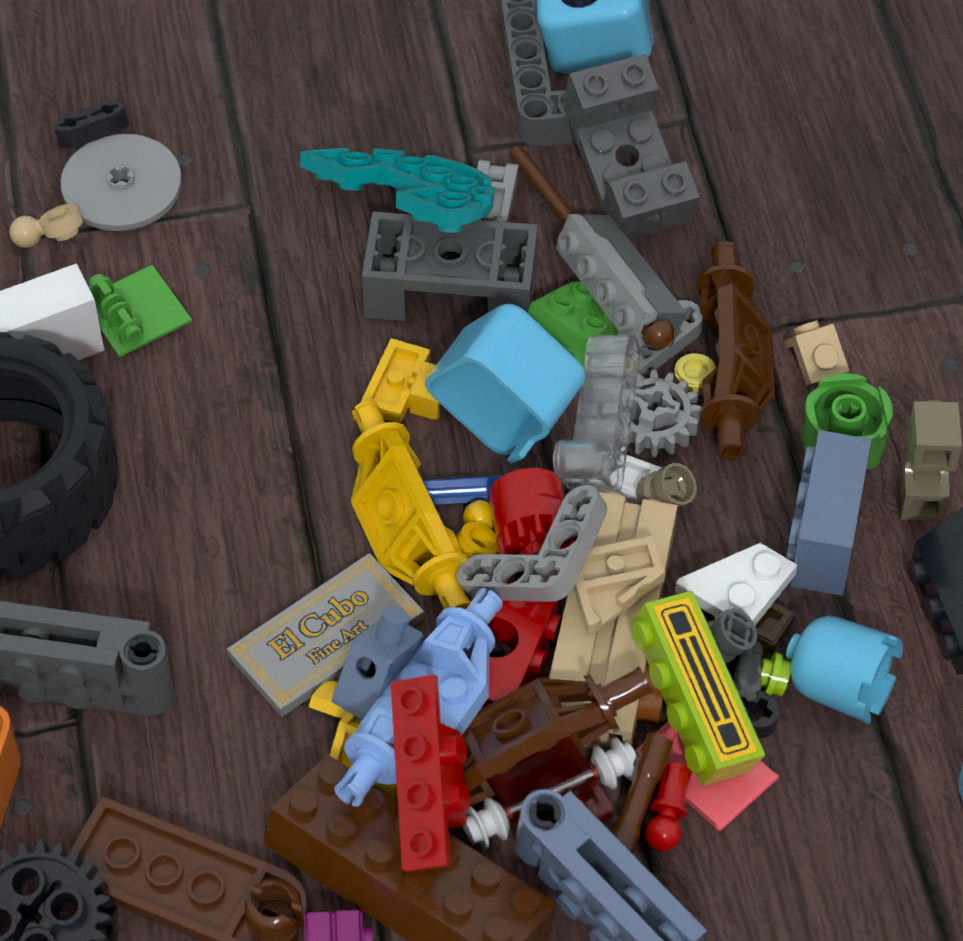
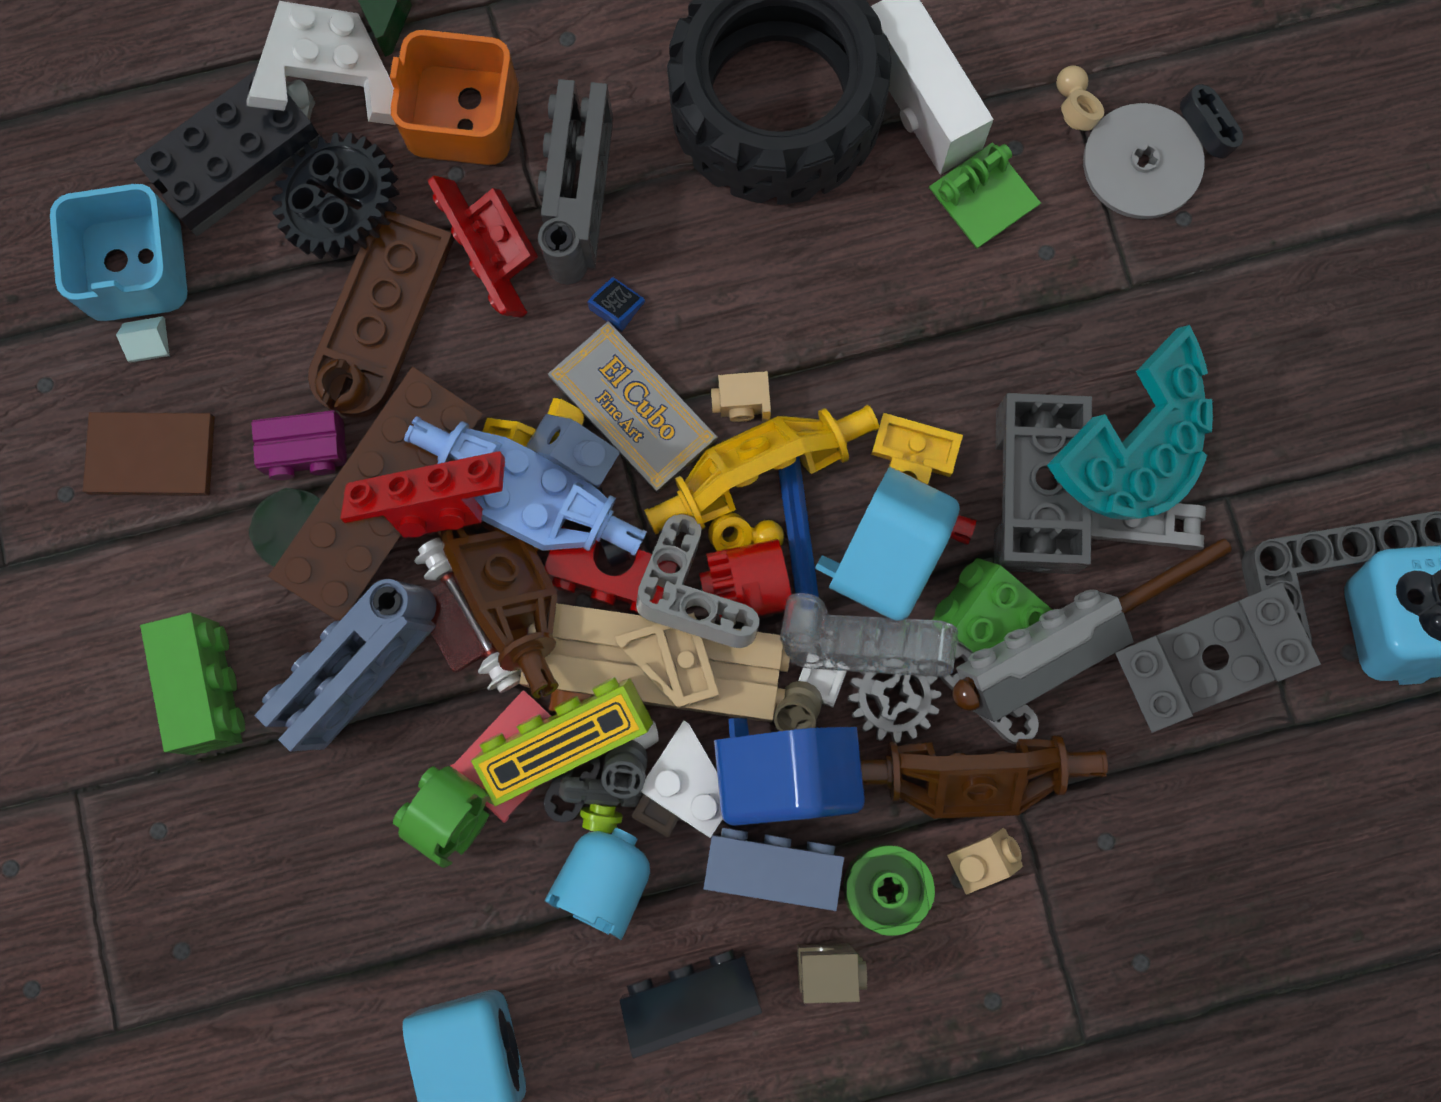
camera: 90 degrees right, 25 degrees up
(112, 754) = (490, 238): none -> red bracket
(207, 644) = (615, 303): none -> slope
(329, 523) = (742, 396): none -> tan brick
(646, 776) = (482, 699): reddish brown piece -> none
(663, 830) = (437, 718): red pin -> none
(693, 369) = (953, 736): light yellow tile -> none
(738, 479) = (788, 774): none -> blue piece
(773, 811) = (443, 815): none -> bright green brick

